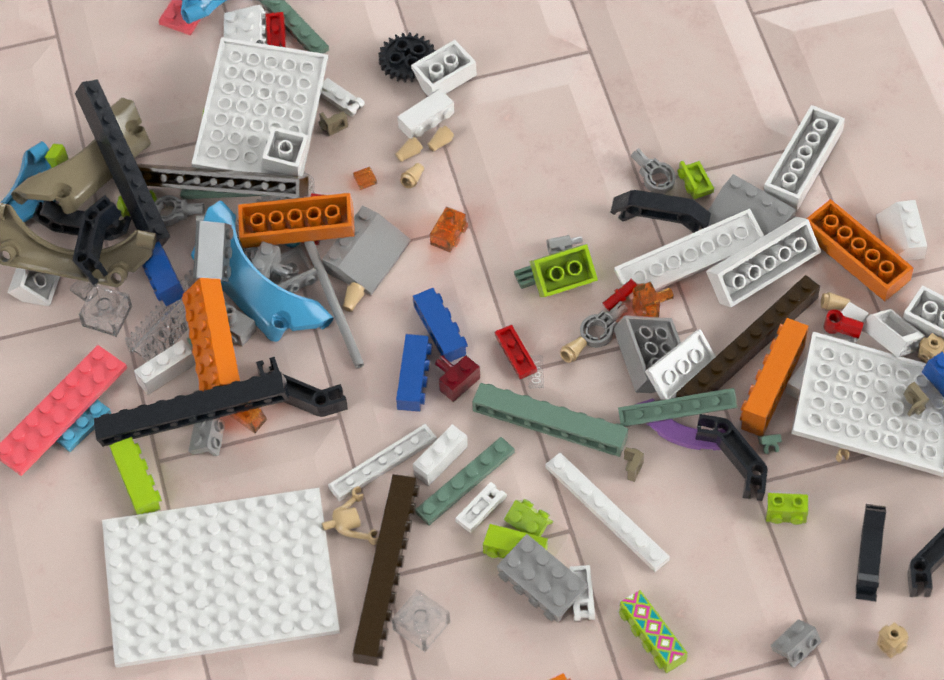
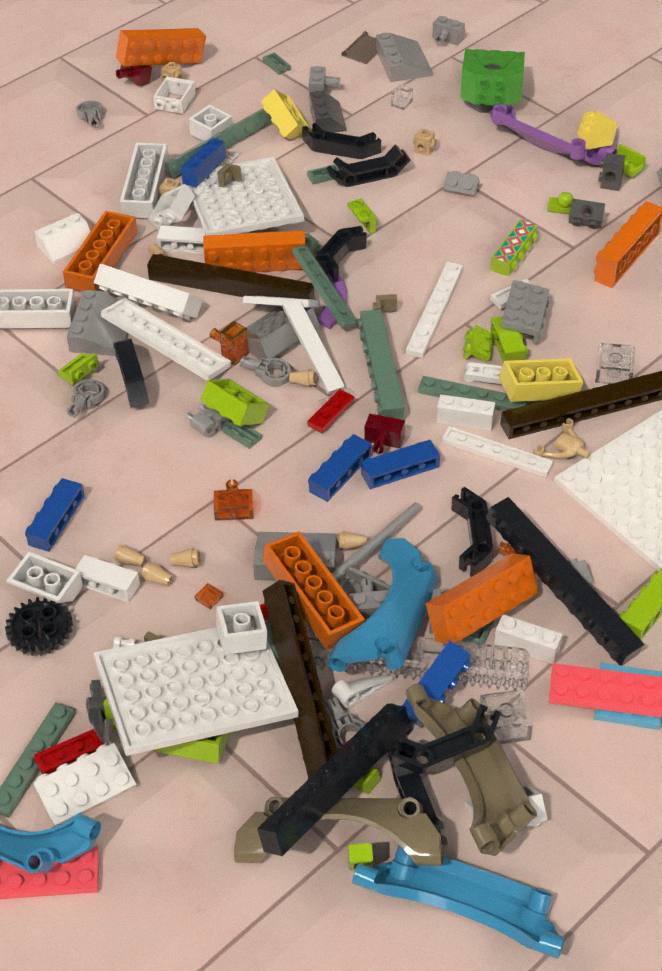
camera: 120 degrees left, 10 degrees down
(212, 250) = (400, 621): slope -> none
(432, 530) = (539, 379): none -> light yellow brick
(520, 104) = (54, 514): none -> blue brick
(599, 362) = (313, 346): none -> white tile
(620, 295) = (232, 365): red pin -> none
(843, 324) = (186, 228): red piece -> none
(894, 531) = (320, 175): none -> sand green tile

